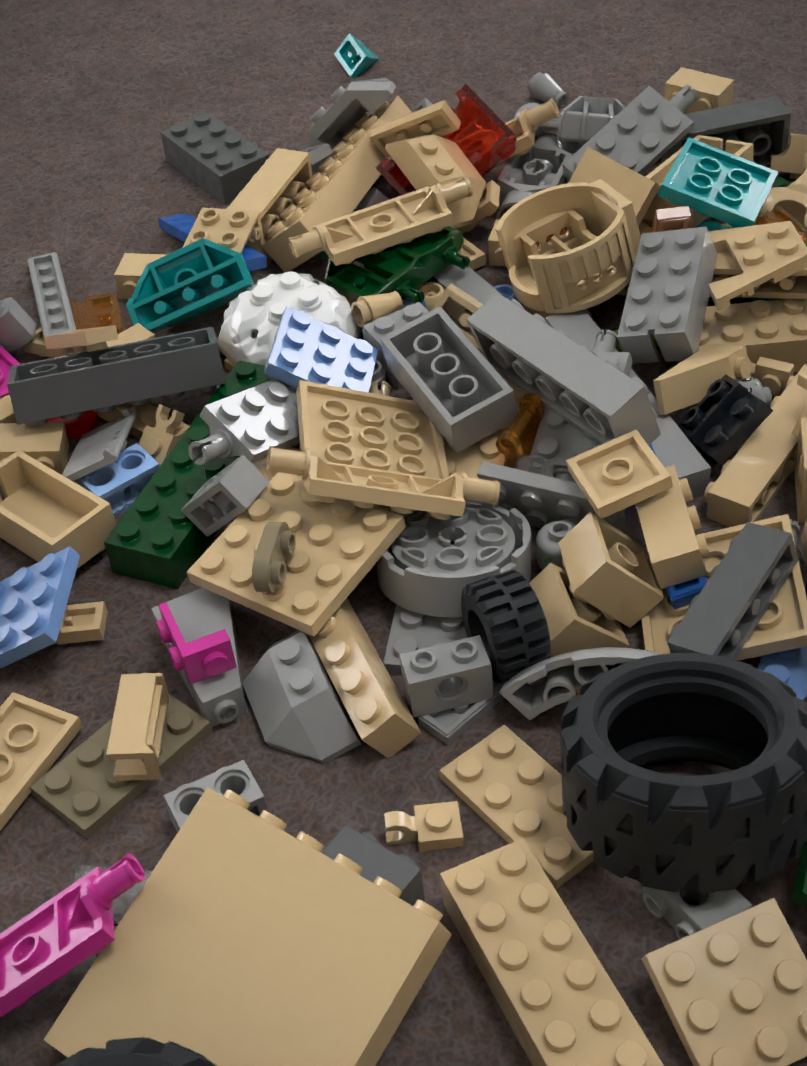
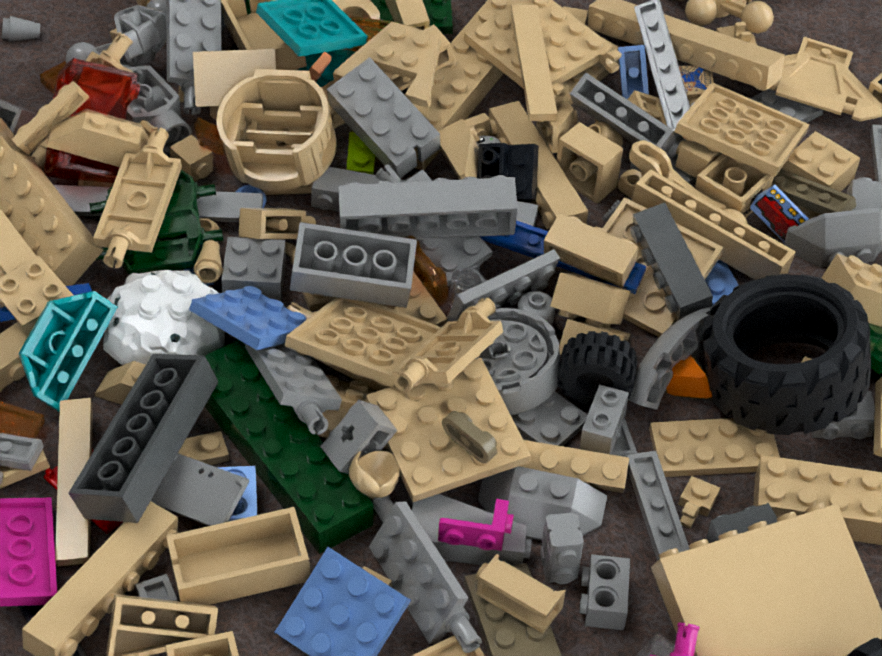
camera: 65 degrees left, 5 degrees up
(81, 340) = (81, 434): tan plate -> none
(106, 639) = (421, 575): none -> light grey plate
(160, 440) = (214, 454): tan plate -> none
(189, 530) = (374, 473): none -> tan piece
(230, 727) = (561, 547): none -> light grey brick
(386, 786) = (656, 503): none -> light grey plate
(619, 474) = (546, 239): tan plate -> none

